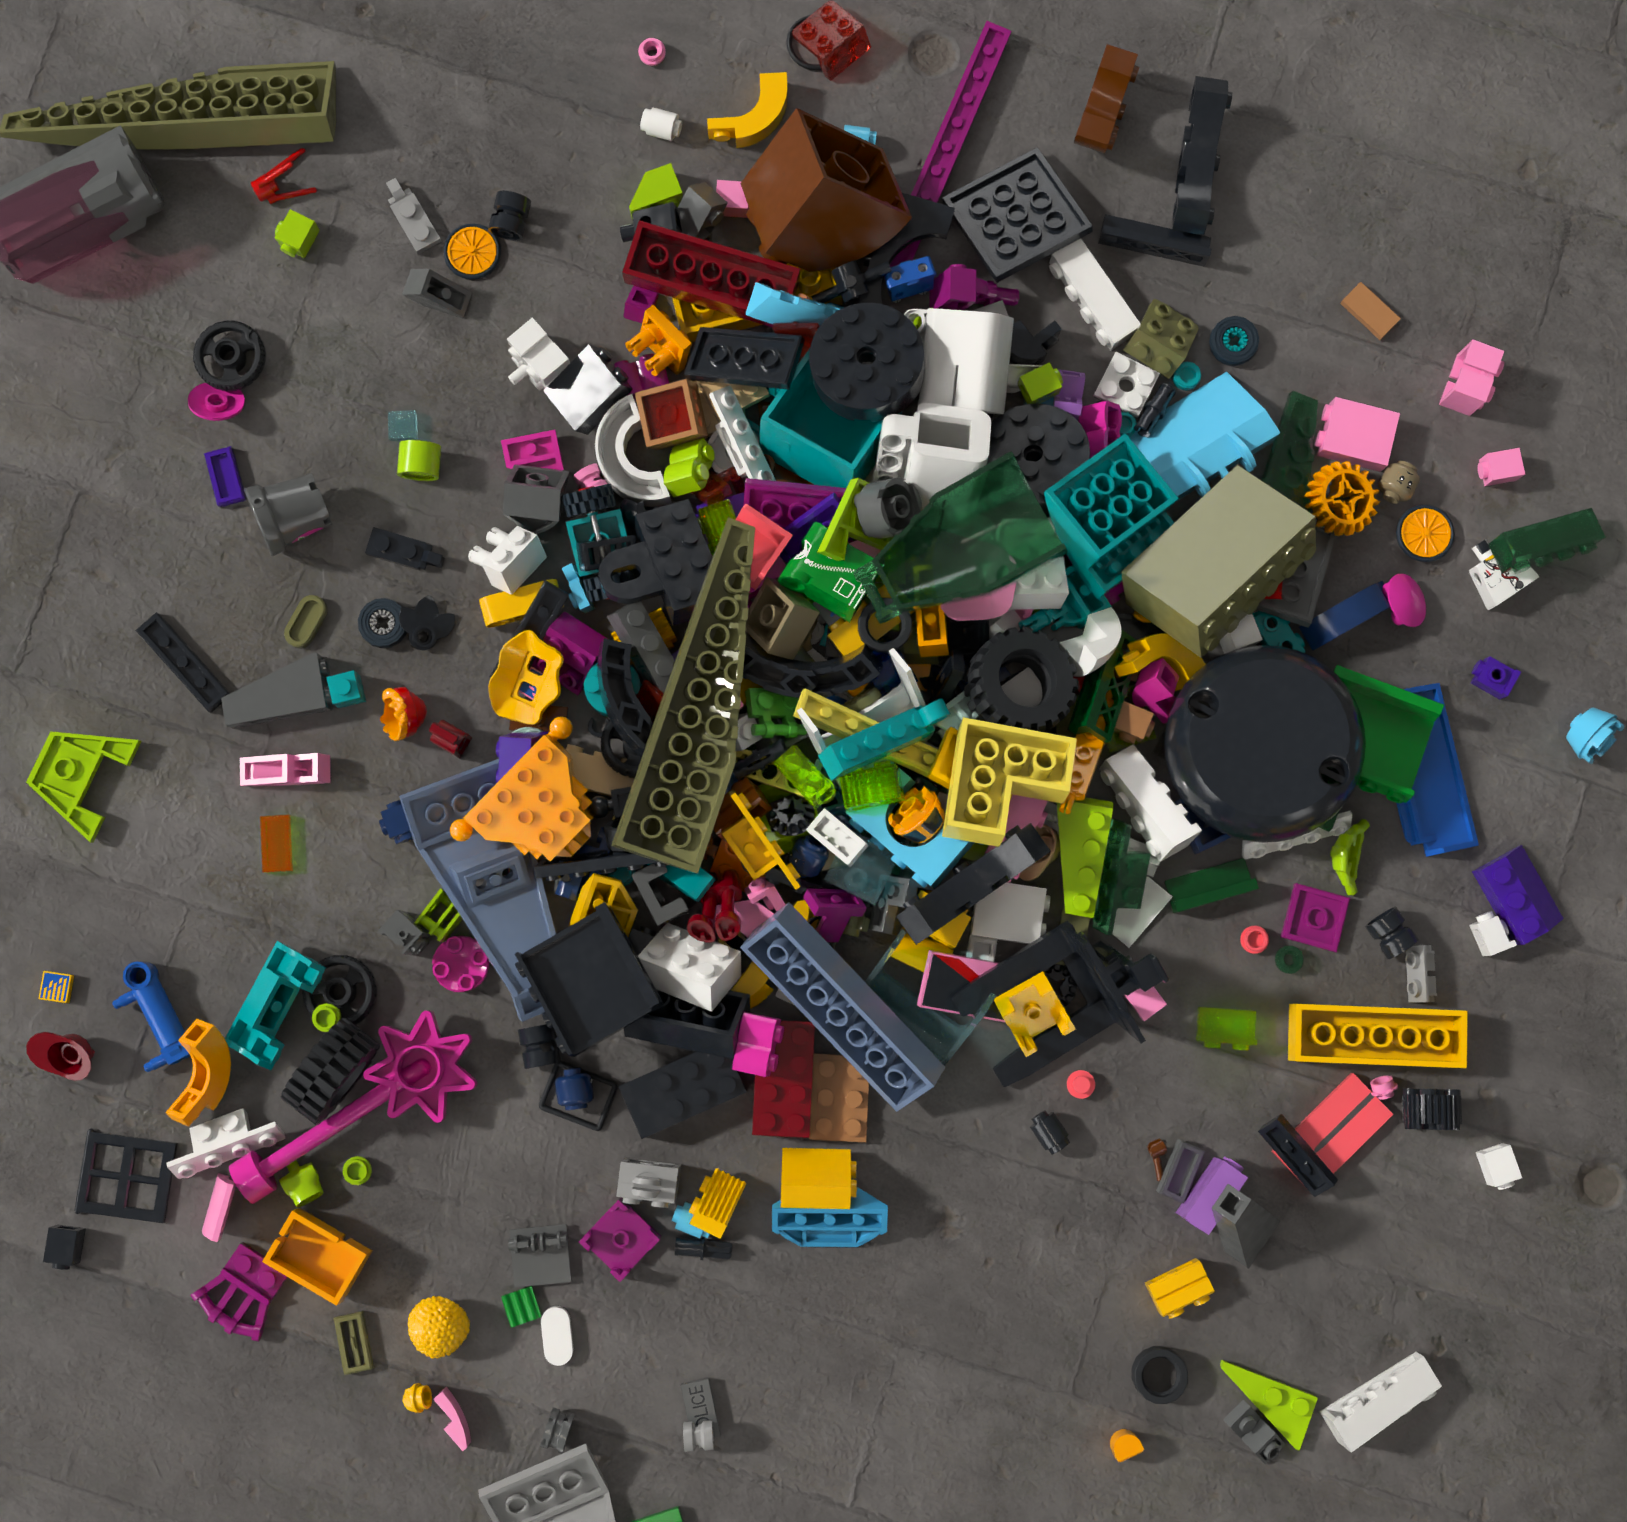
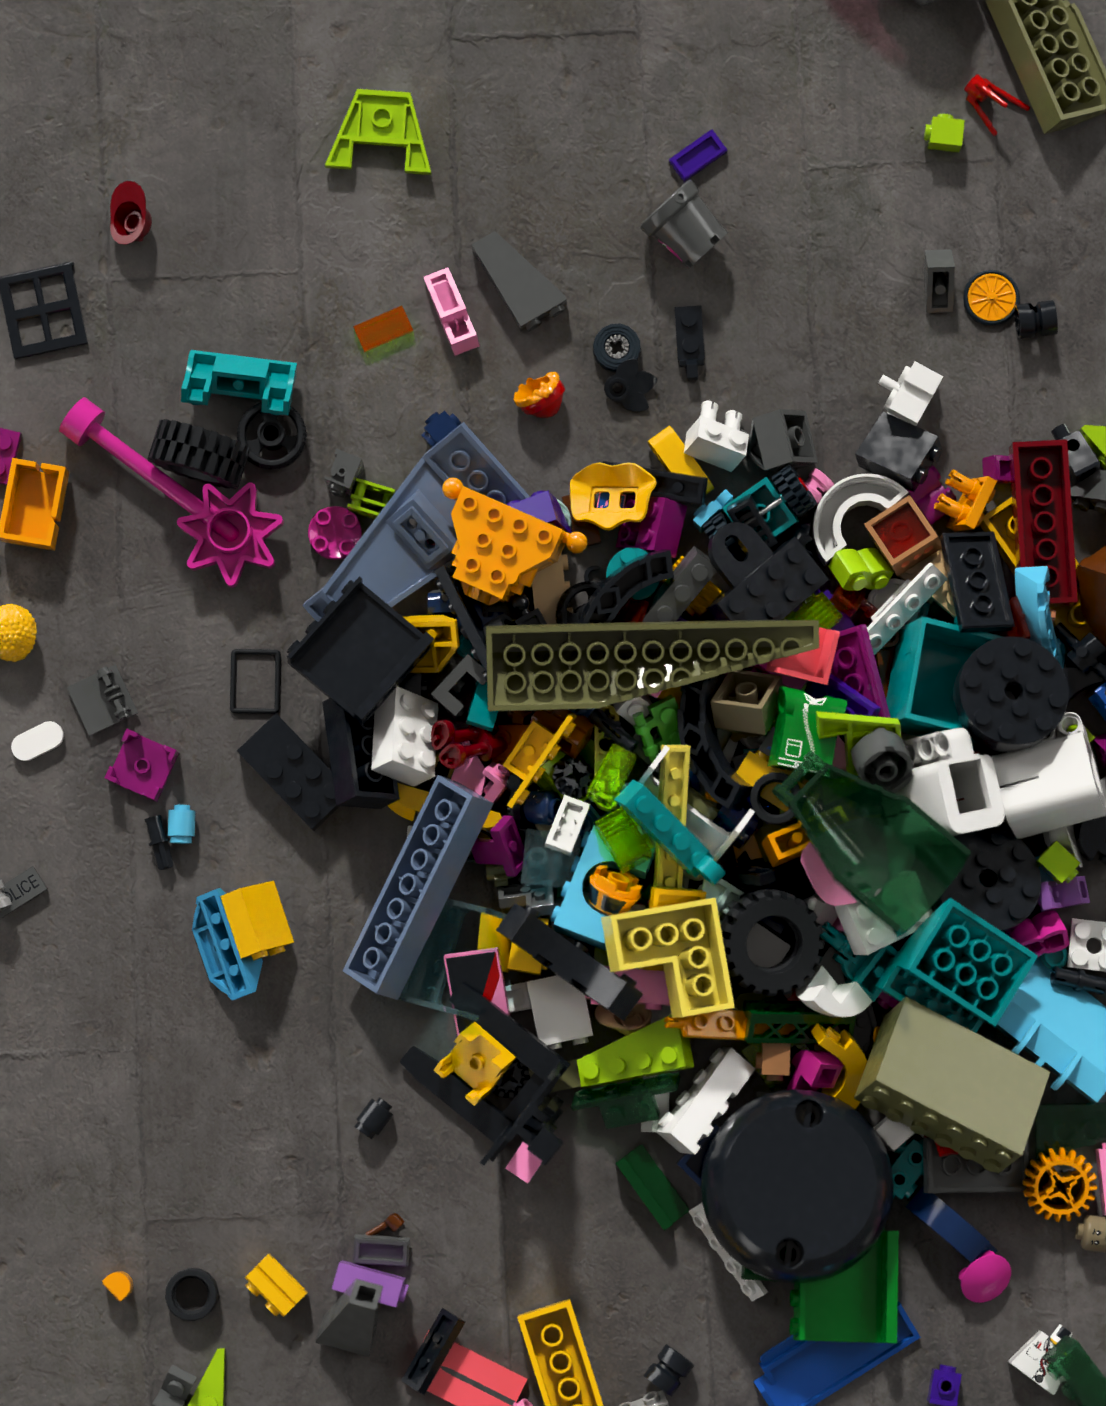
camera: 75 degrees right, 0 degrees up
(56, 987) = (186, 185): tile -> none
(157, 1012) = (195, 284): blue piece -> none
(183, 662) = (515, 184): black tile -> none
(209, 1074) = (159, 348): light orange arch -> none
(214, 403) = (763, 121): dark pink dish -> none
(218, 1208) = (45, 402): bright pink slope -> none
(223, 1141) = (104, 383): white bracket -> none
(249, 341) = (829, 129): black wheel -> none
(302, 1183) = (91, 466): lime piece -> none
(305, 621) = (592, 278): olive tile -> none
(325, 1016) = (244, 431): lime plate -> none
(346, 689) = (544, 338): teal brick -> none
(357, 1170) = (119, 510): lime plate -> none
(402, 425) = (805, 296): clear light blue tile -> none
(412, 218) = (1001, 231): light grey hinge -> none
(419, 460) = (776, 323): lime piece -> none
(449, 738) = (533, 447): dark red piece -> none
(521, 1306) = (52, 700): green piece -> none
(533, 450) = (824, 423): dark pink wing -> none
(539, 1046) = (289, 621): black wheel -> none
(574, 1089) = (259, 675): dark blue head -> none
(648, 1181) = (201, 770): light grey brick -> none
(718, 1202) = (204, 839): yellow brick -> none
(757, 1044) = (357, 822): dark pink brick -> none
(784, 1097) = (336, 858): dark red brick -> none
(838, 1100) = (333, 915): medium nougat plate -> none
(1080, 1084) = (427, 1131): coral plate -> none
(1132, 922) = (590, 1126): white sticker -> none
(1226, 1026) = (527, 1246): clear neon green bracket -> none
(1254, 939) = (617, 1245): coral plate -> none
(1297, 959) = (613, 1292): clear green plate -> none
(1315, 917) = (658, 1295): magenta tile -> none
(1347, 853) = (727, 1304): lime piece -> none
(1425, 533) = (1058, 1276): light orange wheel -> none

